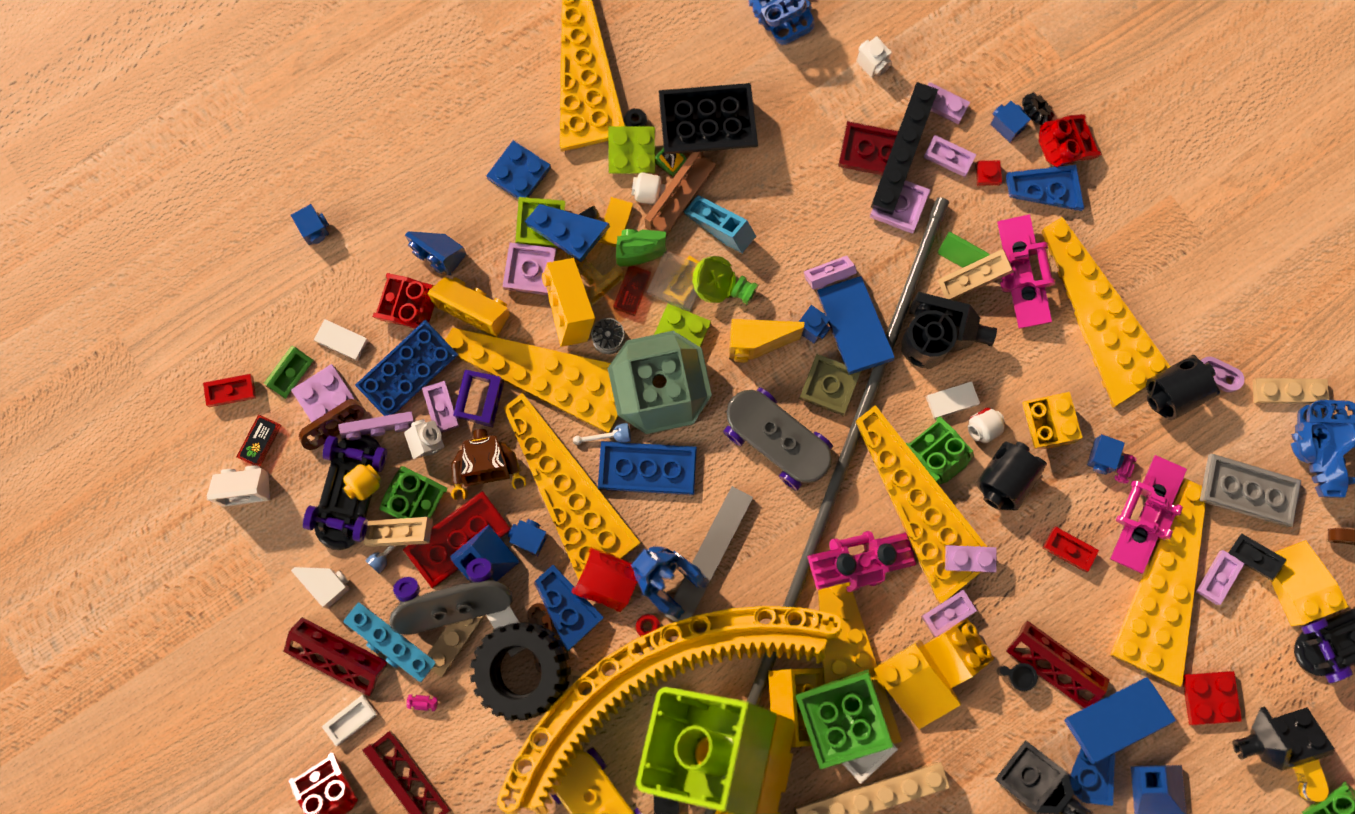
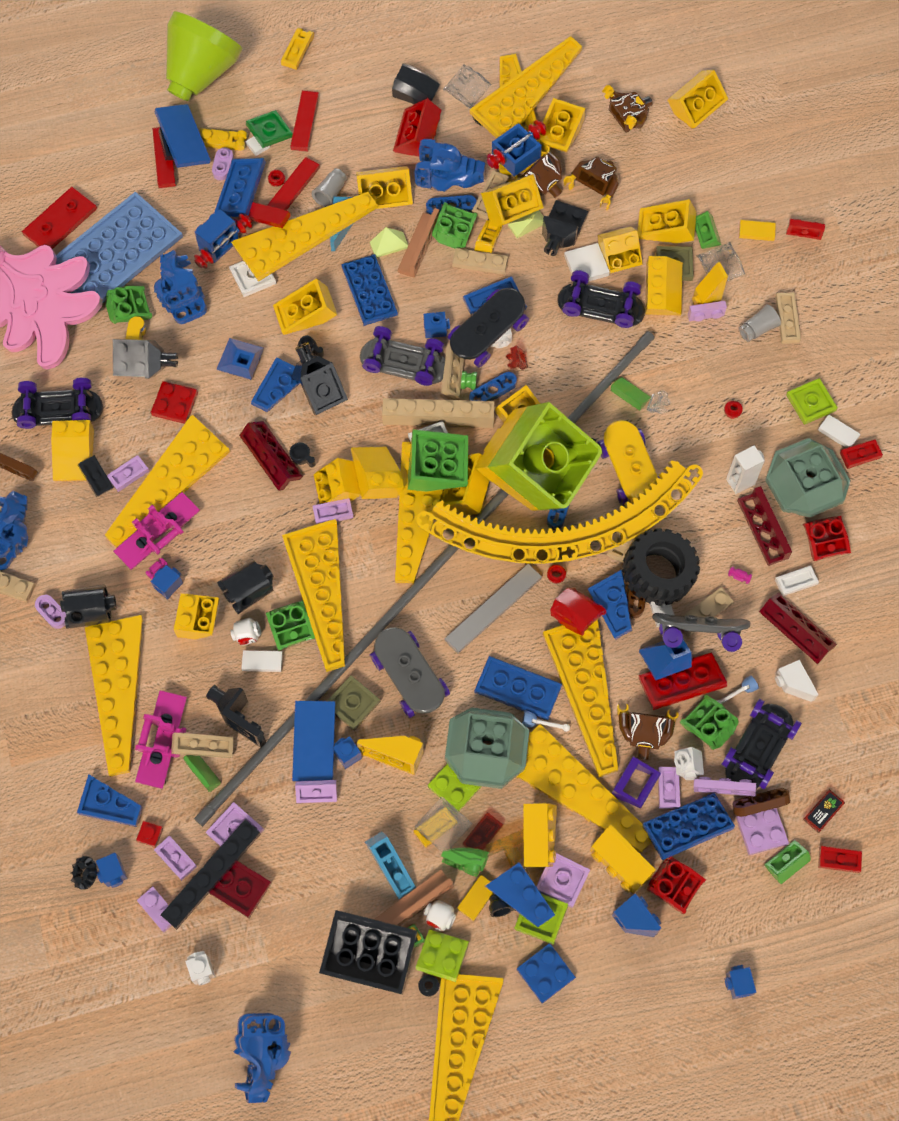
camera: 160 degrees left, 10 degrees down
(239, 487) = (846, 773): white slope -> none
(341, 340) = (737, 873): white tile -> none
(361, 482) = (747, 742): yellow head -> none
(393, 645) = (749, 610): dark azure bracket -> none
(398, 532) = (727, 696): tan plate -> none
(528, 536) = (627, 664): blue brick -> none
(608, 336) = (513, 800): light grey wheel -> none
(659, 563) = (534, 596): blue animal -> none
(714, 279) = (413, 815): lime tile -> none
(744, 290) = (391, 800): bright green wheel -> none
(862, 569) = (378, 556): dark pink piece -> none
(929, 339) = (263, 704): black cylinder -> none
(970, 558) = (301, 539): lavender plate -> none
(1067, 140) = (72, 835): red slope -> none
(1070, 549) = (224, 526): red plate -> none
(1119, 720) = (246, 404): blue tile -> none
(1250, 490) = (74, 523): light grey tile -> none

